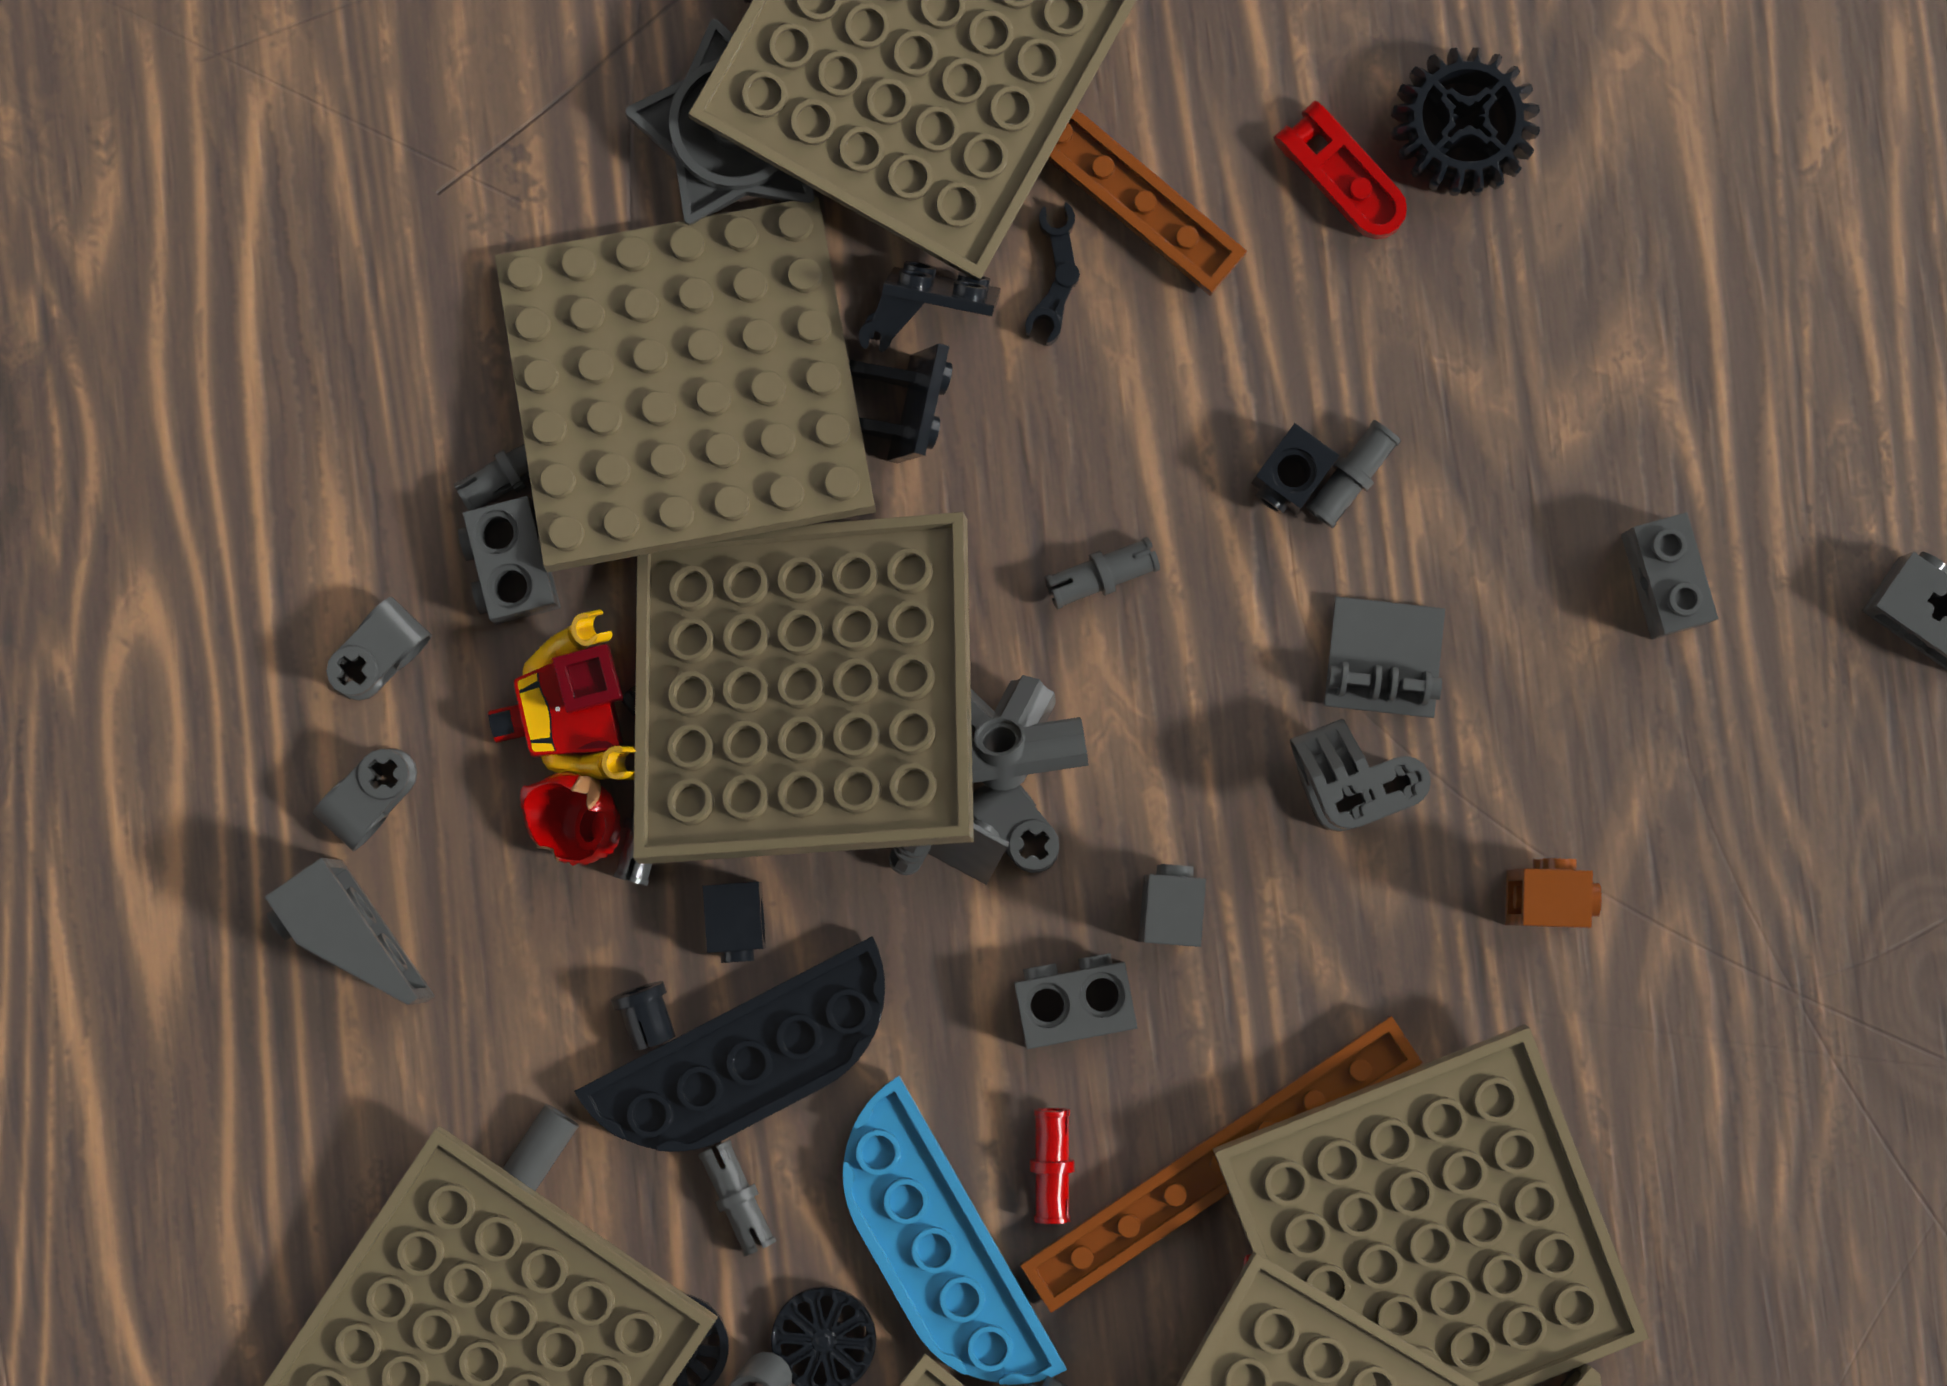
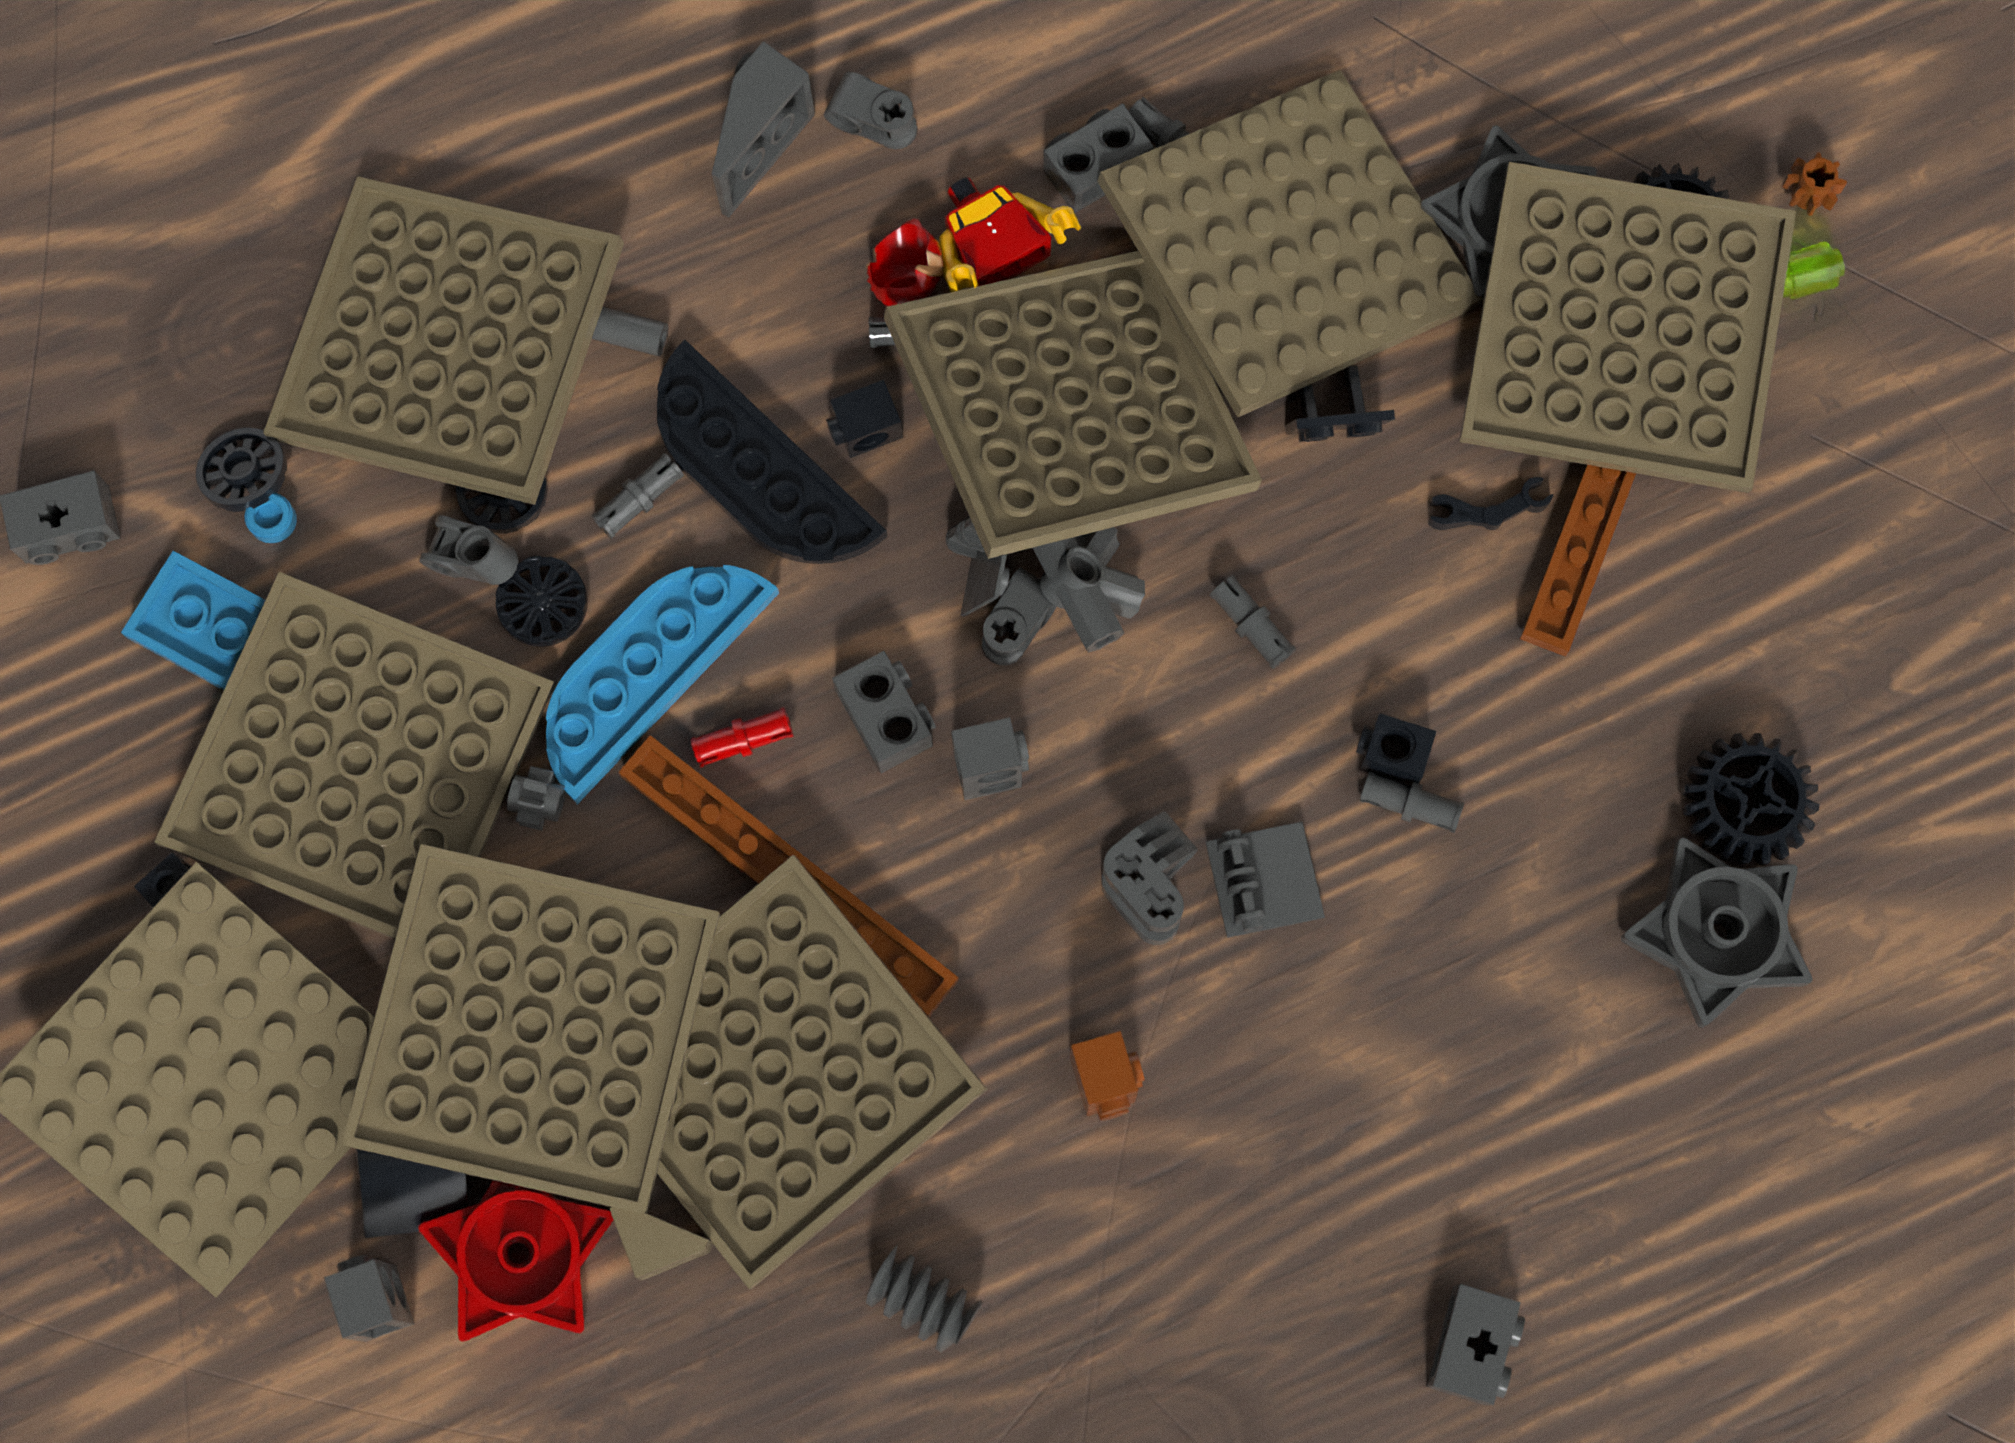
camera: 75 degrees right, 10 degrees down
(385, 641) = (991, 82): dark grey piece -> none
(587, 678) = (1021, 233): dark red plate -> none
(645, 1015) = (764, 376): black bush -> none
(917, 284) = (1426, 386): black plate -> none
(1344, 173) = (1665, 715): red plate -> none
(1624, 180) = (1747, 904): none -> dark grey plate
(1669, 575) = (1421, 1096): dark grey brick -> none
(1718, 1159) = (921, 1301): none -> dark grey piece

